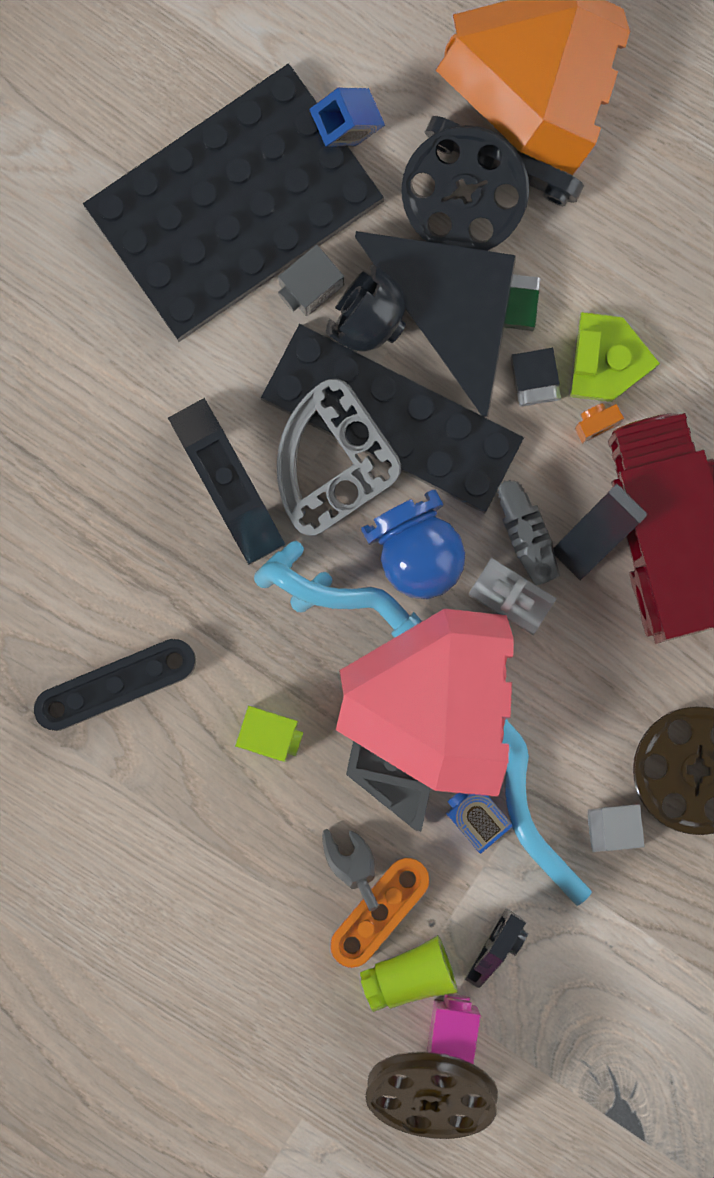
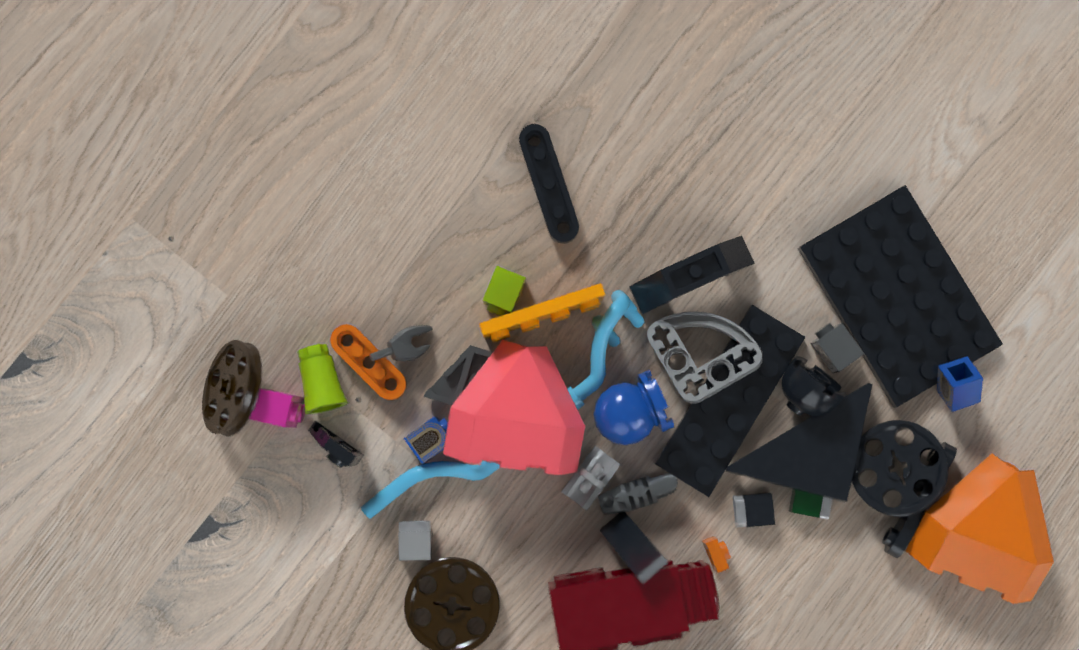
camera: 90 degrees right, 0 degrees up
(289, 662) = (555, 309): none -> light orange plate
(608, 358) = (764, 565): lime plate -> none

